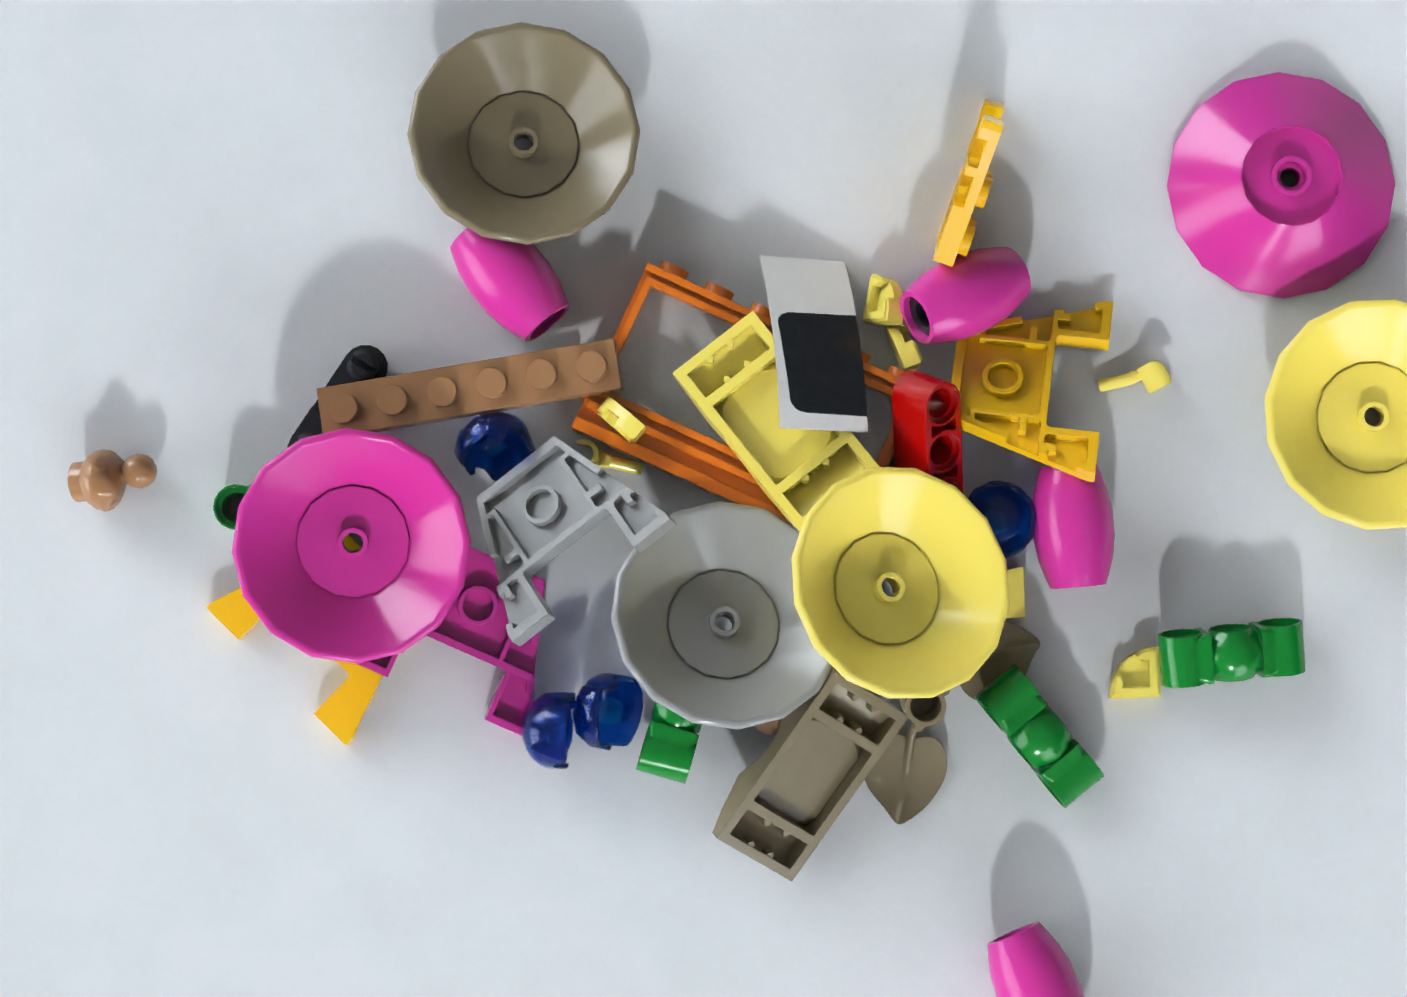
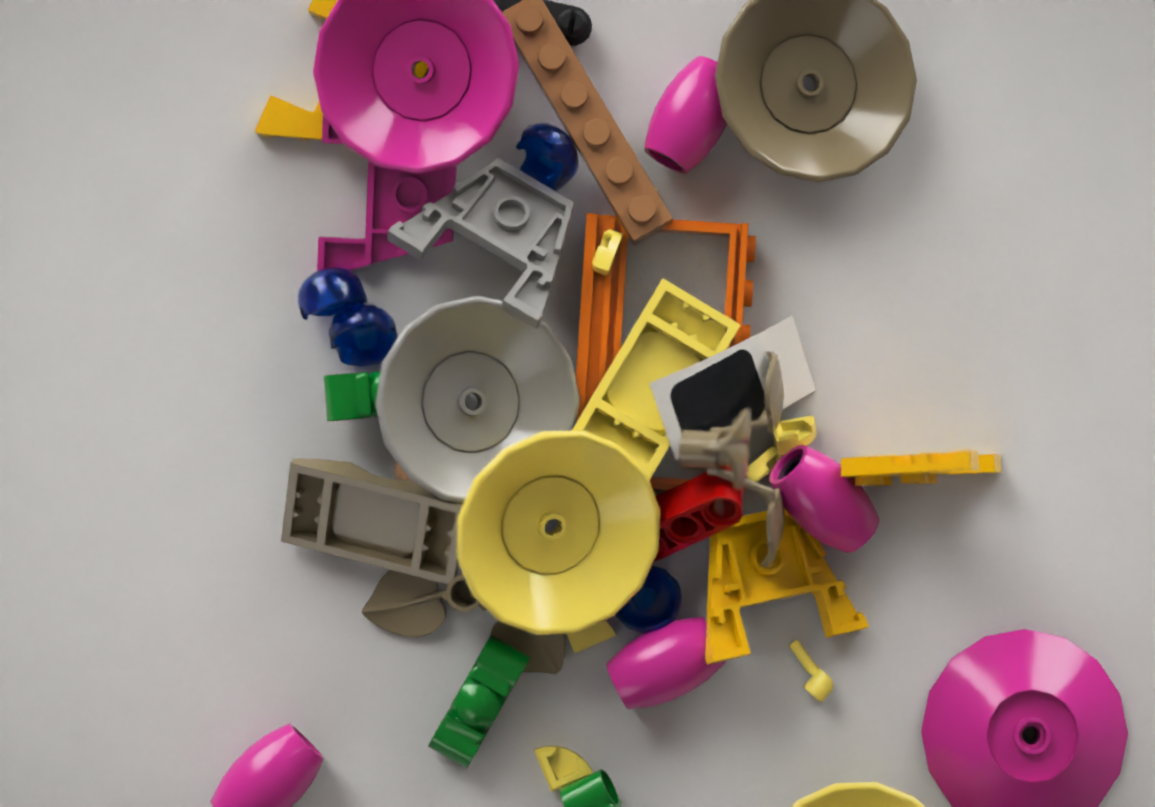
camera: 70 degrees right, 0 degrees up
(608, 461) = (572, 255): light yellow hand -> none
(875, 389) = (711, 450): none -> dark tan plant

